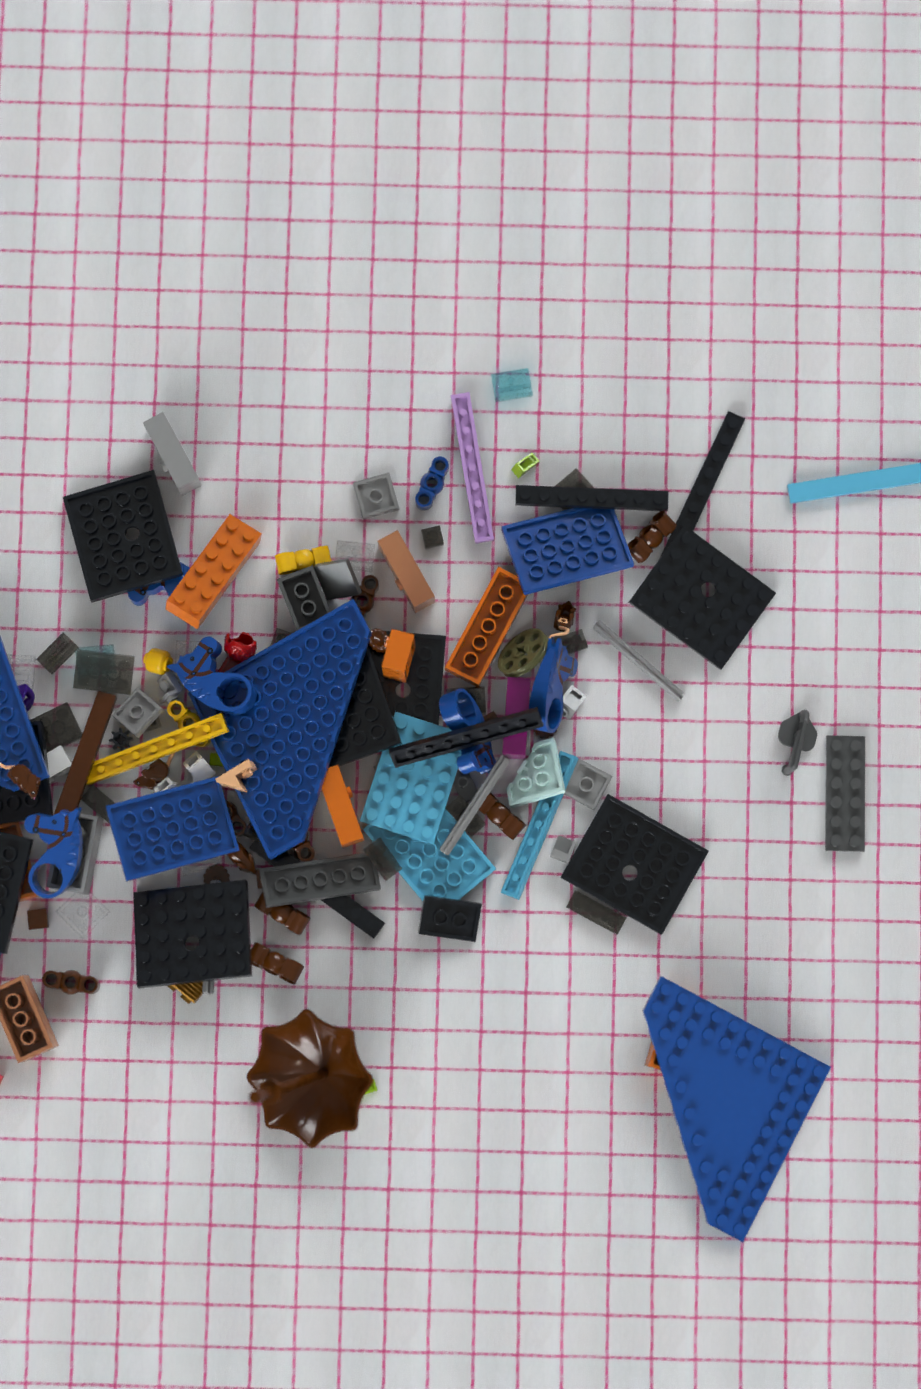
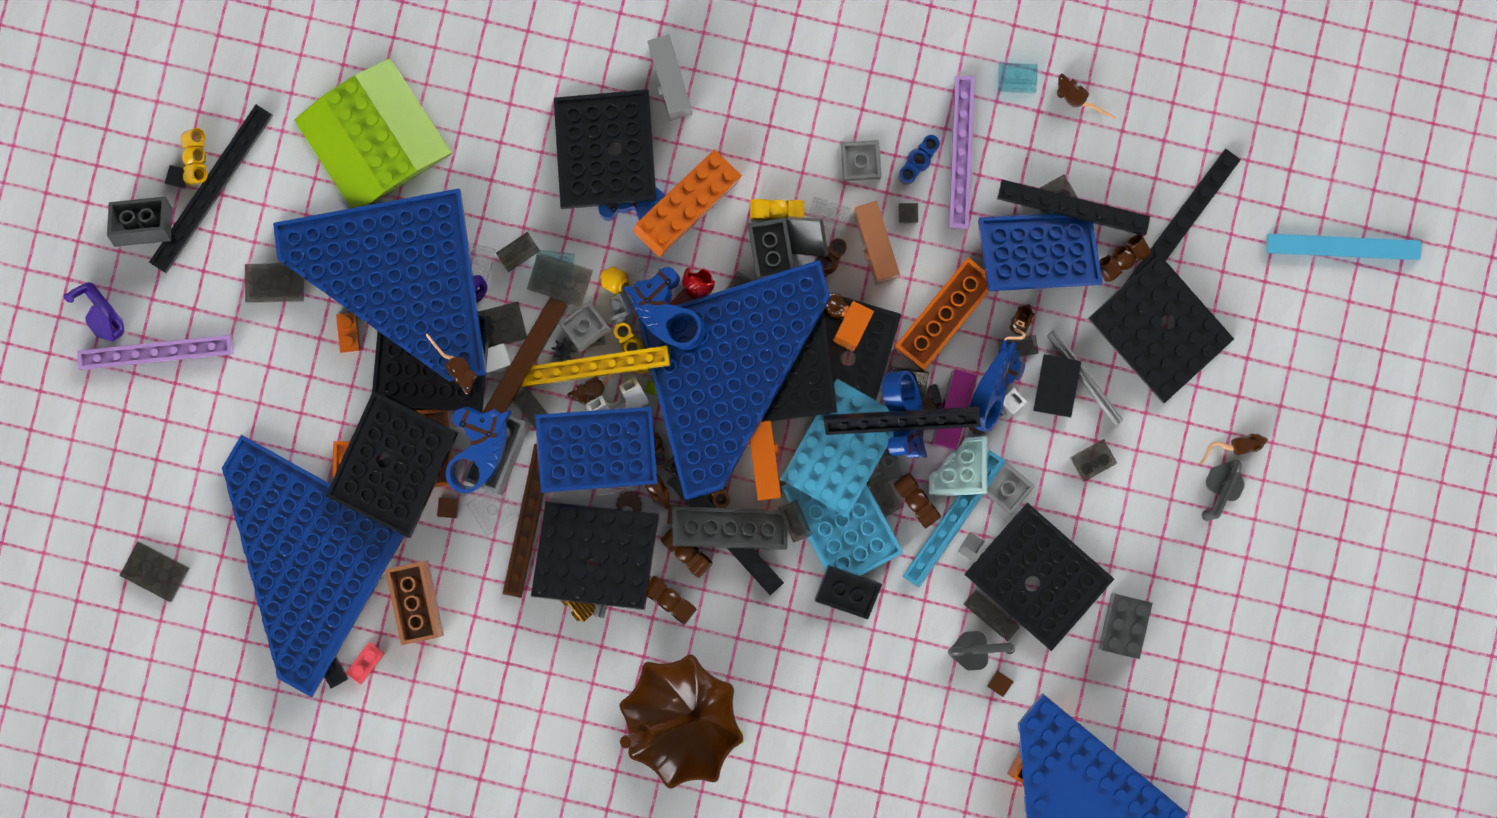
camera: 10 degrees right, 5 degrees up
(61, 982) = (458, 574): reddish brown piece -> none
(119, 926) = (525, 531): none -> reddish brown tile
(233, 777) = (665, 412): light nougat slope -> none
(474, 804) = (895, 487): light grey axle -> none
(495, 706) = (935, 393): none -> black tile
(525, 465) = (1014, 160): lime piece -> none
(531, 653) = (969, 353): olive wedge -> none
(570, 389) = (1075, 95): none -> reddish brown animal
(584, 949) = (972, 650): none -> dark grey piece
(613, 674) = (1057, 385): none -> black tile
(618, 978) = (1000, 683): none -> reddish brown tile
(664, 739) = (1093, 460): none -> clear smoke plate
(729, 894) = (1125, 626): none -> dark grey brick
(805, 694) = (1241, 445): none -> reddish brown animal
(845, 794) = (1259, 550): dark grey plate -> none

